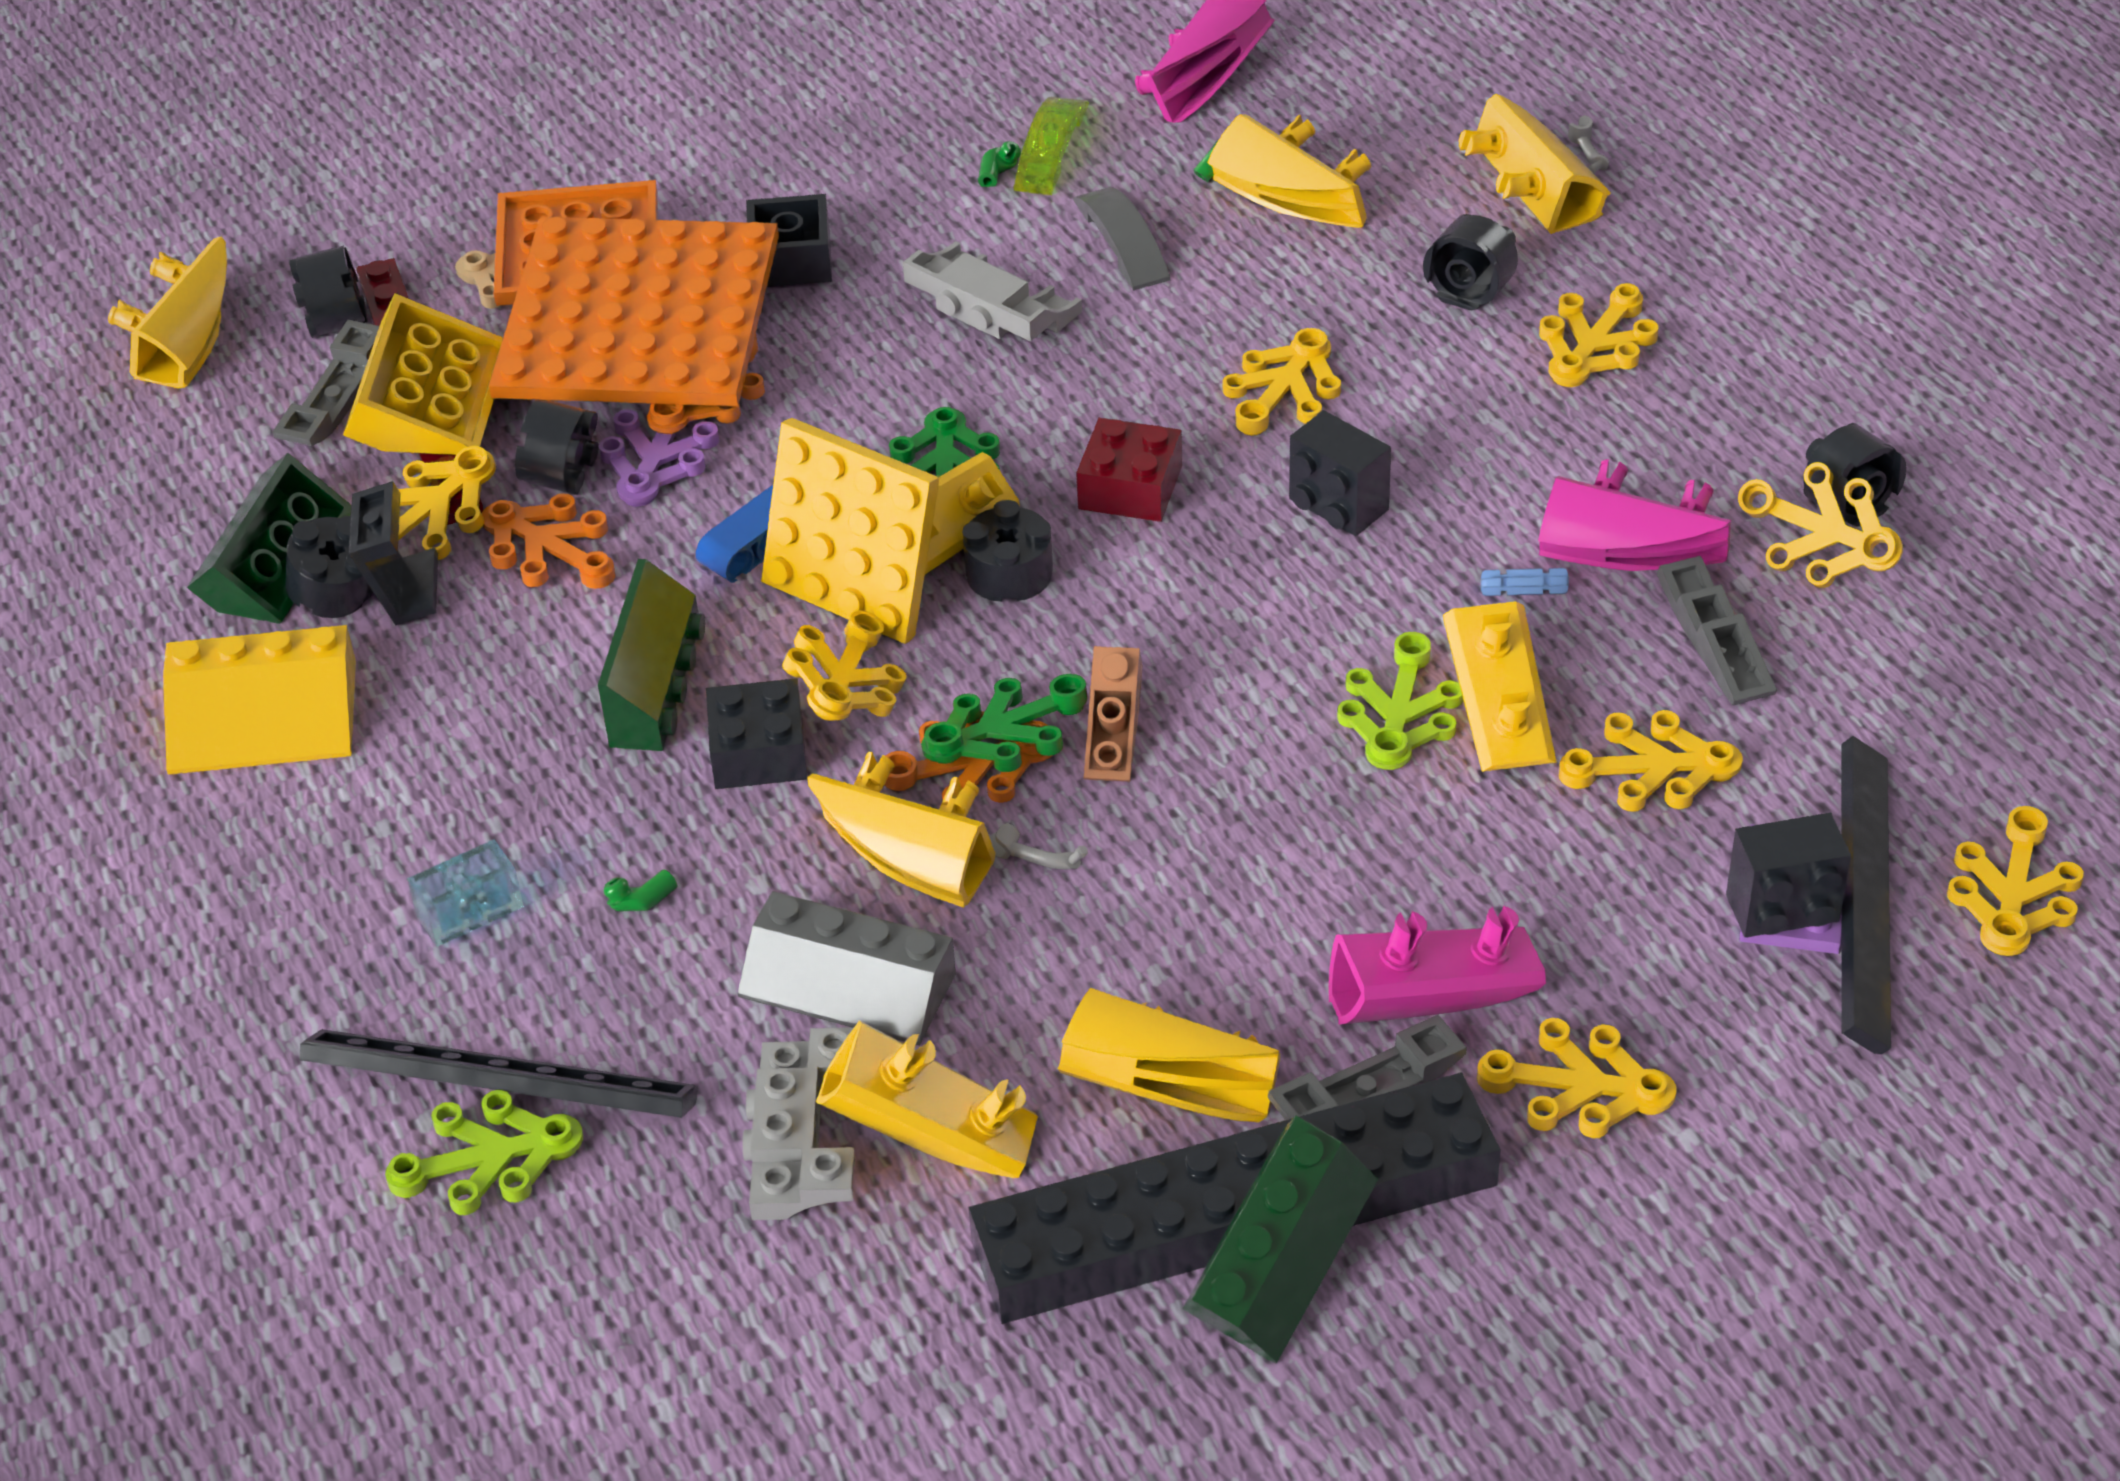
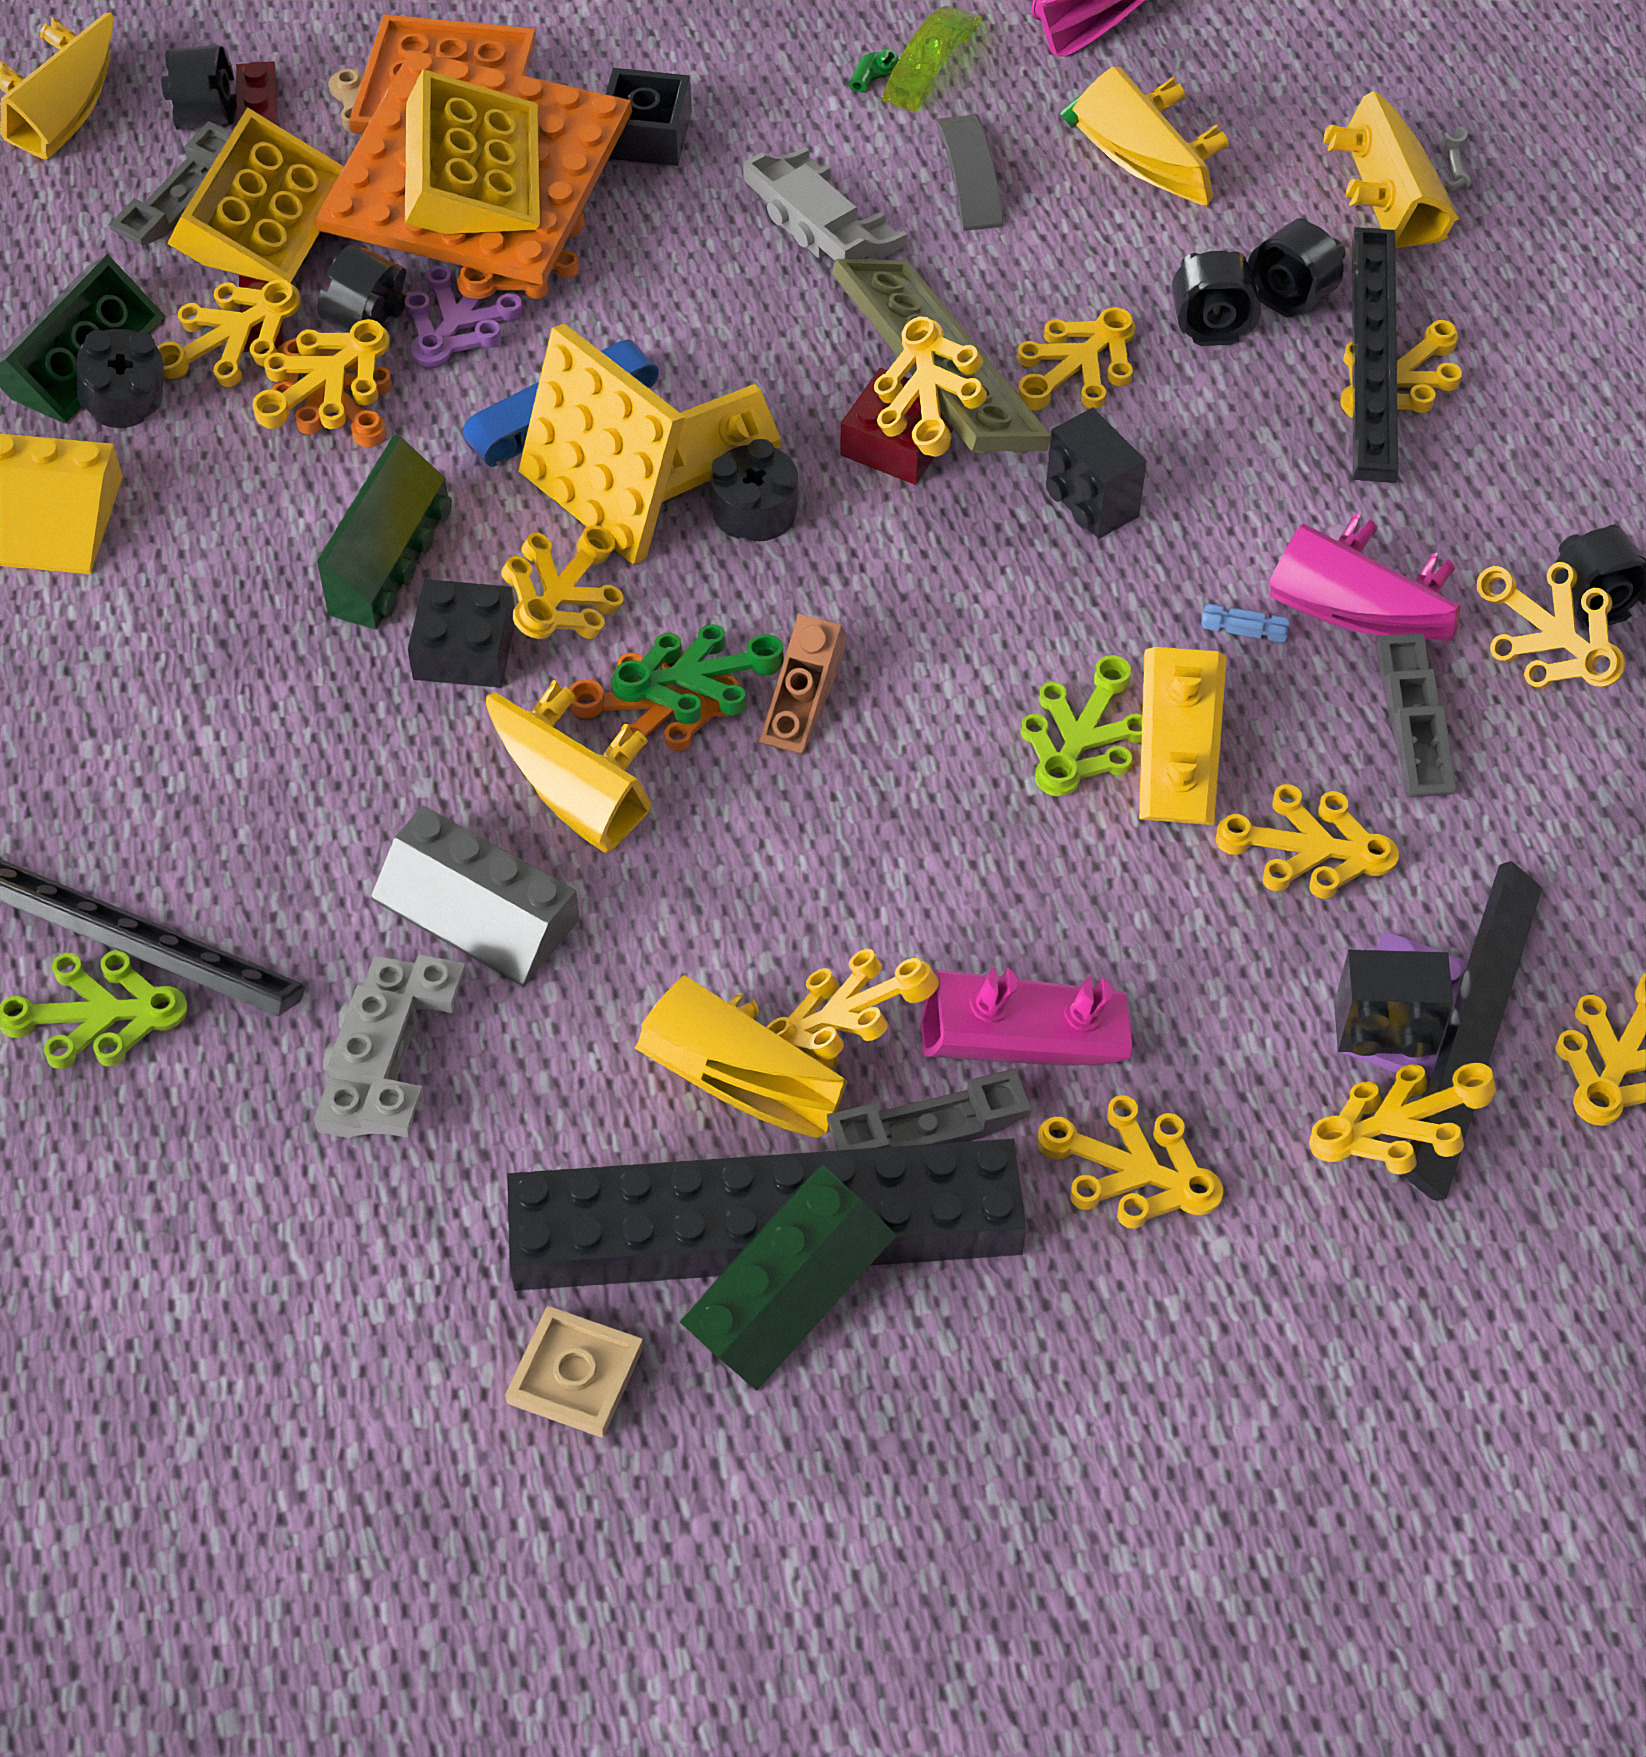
camera: 10 degrees right, 10 degrees up
(401, 583) = (175, 402): black panel -> none
(465, 892) = (145, 742): clear light blue brick -> none
(572, 489) = (363, 343): none -> yellow plant
(635, 299) = (470, 158): none -> yellow slope
(642, 898) = (309, 779): green arm -> none
(928, 1103) = (505, 1056): yellow piece -> none
(944, 427) = (736, 343): green plant -> none
(1005, 844) = (663, 797): light grey piece -> none
(1089, 1381) = (574, 1371): none -> tan plate
(1138, 381) = (920, 342): none -> yellow plant
(1156, 396) = (893, 295): none -> olive plate
(1255, 991) = (912, 980): none -> yellow plant
(1402, 300) = (1215, 297): none -> black brick
(1571, 325) = (1374, 355): none -> black tile
(1774, 1011) = (1343, 1135): none -> yellow plant

